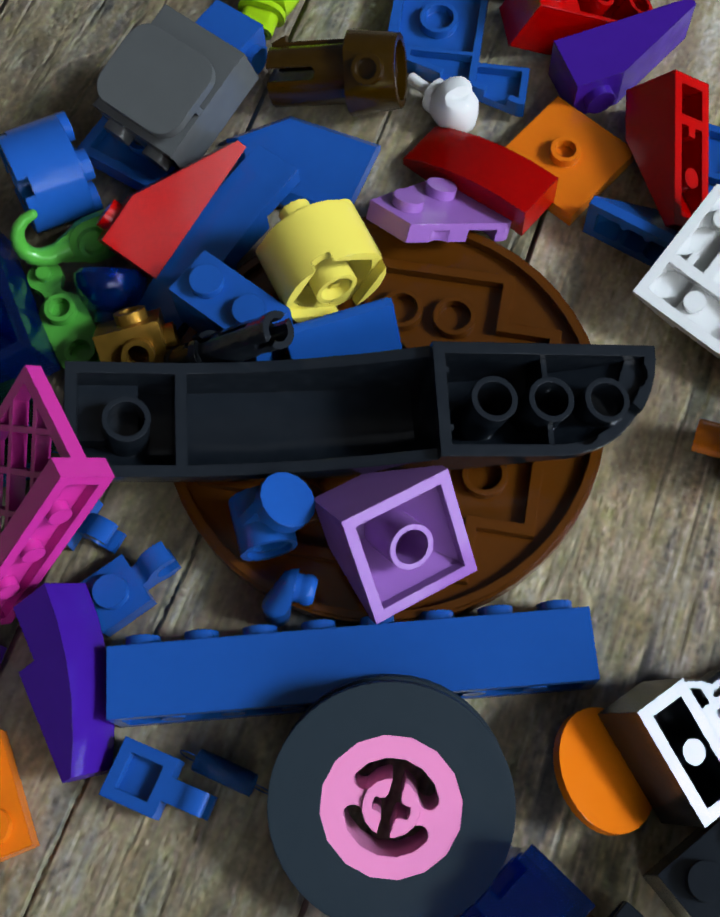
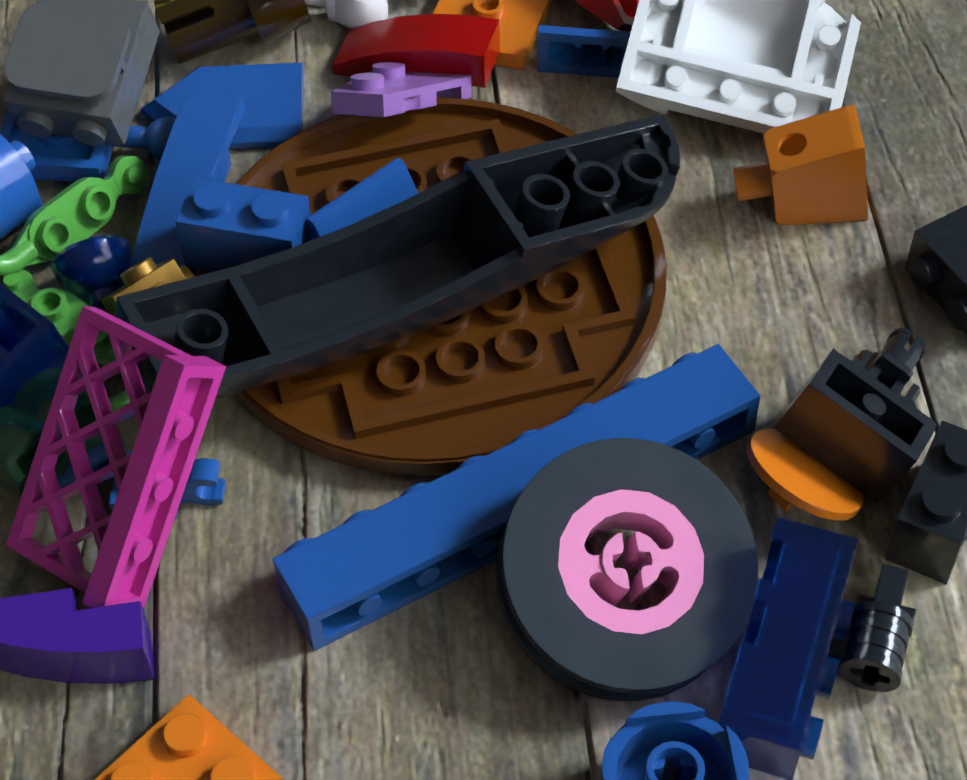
camera: 30 degrees left, 15 degrees down
(68, 678) = (242, 608): dark purple slope -> none
(122, 590) = (254, 528): blue plate -> none
(149, 780) = (373, 671): blue plate -> none
(158, 217) = (121, 181): red slope -> none
(224, 772) = (445, 638): blue piece -> none
(236, 342) = (283, 224): black pin -> none
(270, 515) = (373, 380): blue piece -> none
(289, 588) = (429, 438): blue arm -> none
(320, 257) = (312, 145): light yellow brick -> none
(396, 536) = (510, 349): medium lavender slope -> none

